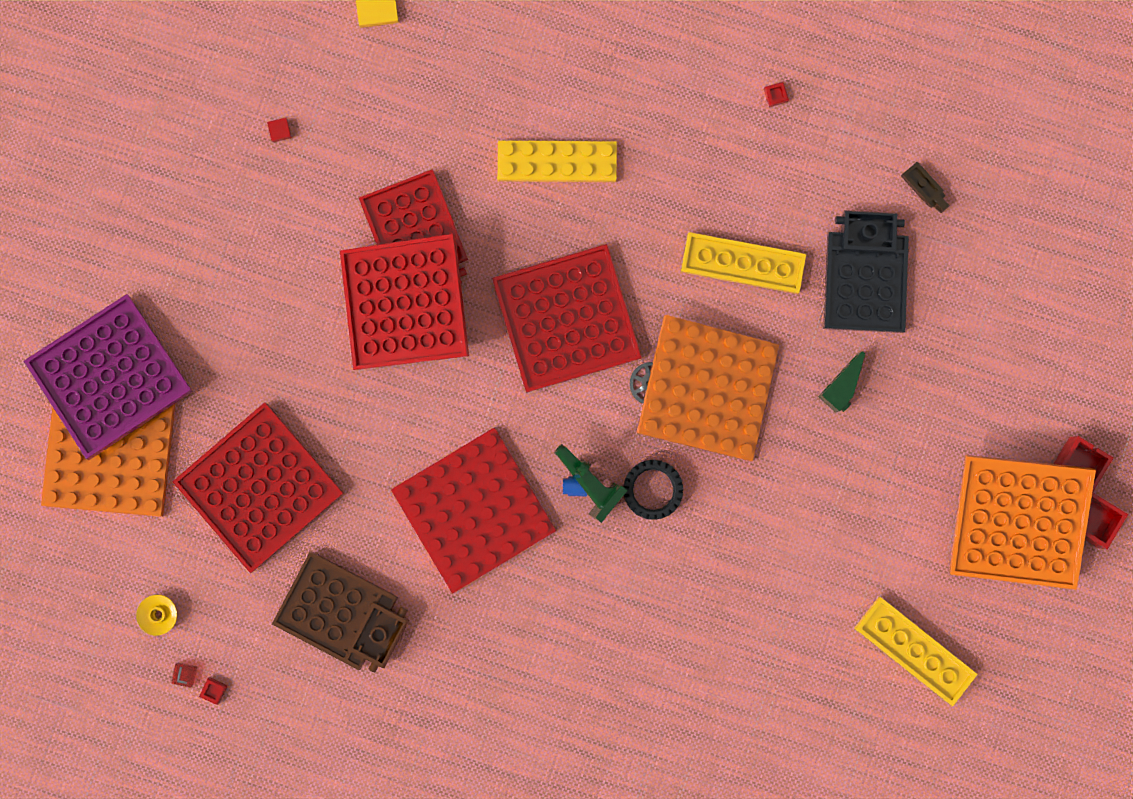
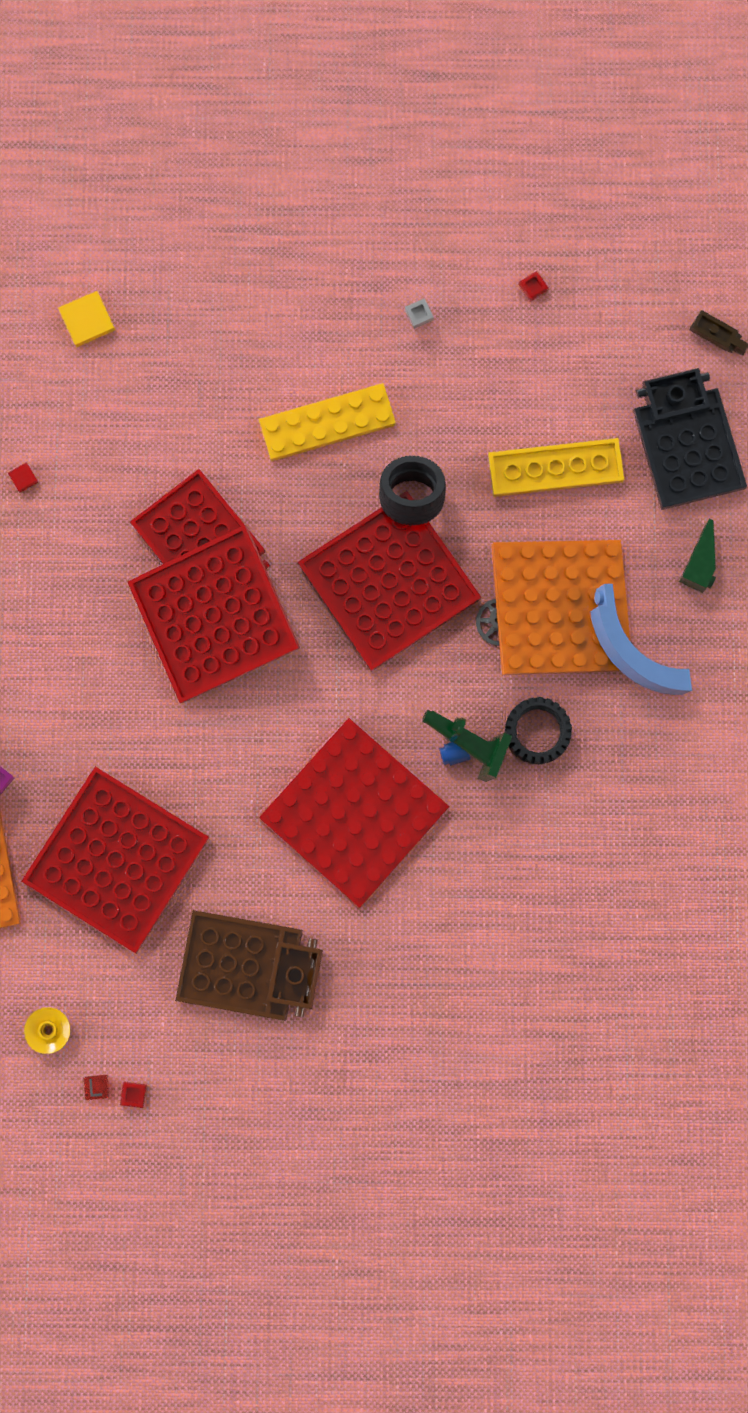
camera: 20 degrees left, 5 degrees down
(615, 226) = (412, 469): none -> black tyre
(667, 89) = (419, 313): none -> light grey tile
(749, 449) = (626, 655): none -> medium blue arch

